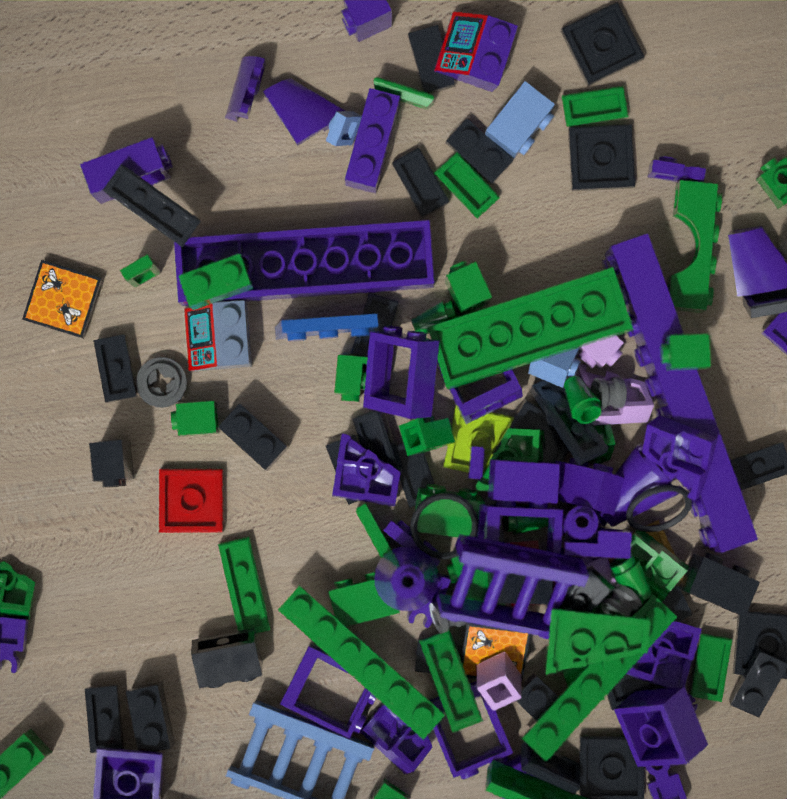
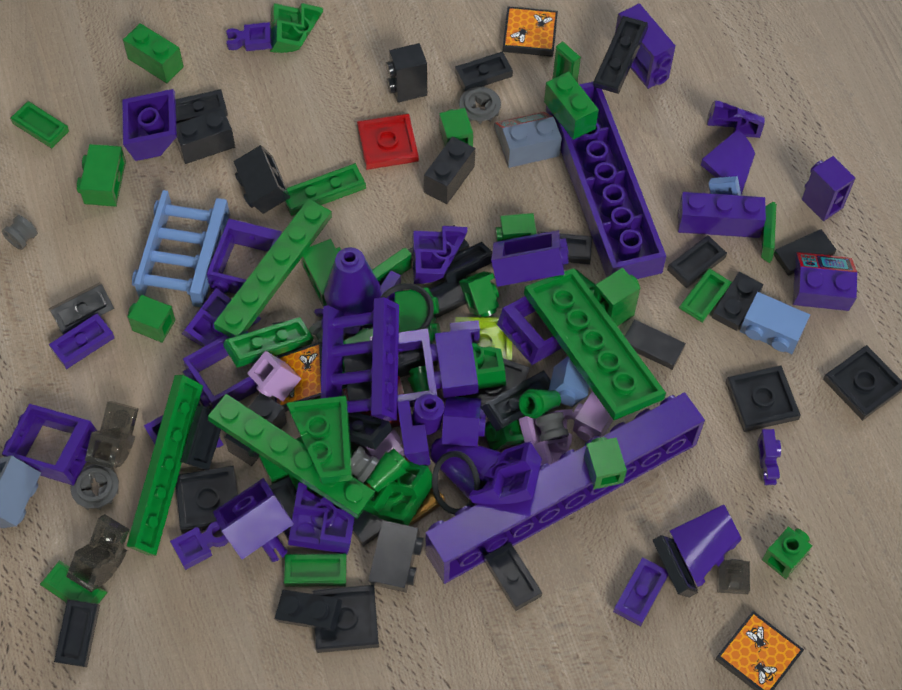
camera: 75 degrees right, 25 degrees down
(326, 327) = (554, 198): blue wing -> none
(516, 258) = (654, 344): none -> black tile
(594, 106) = (807, 383): green tile -> none
(696, 207) = (668, 487): green arch -> none

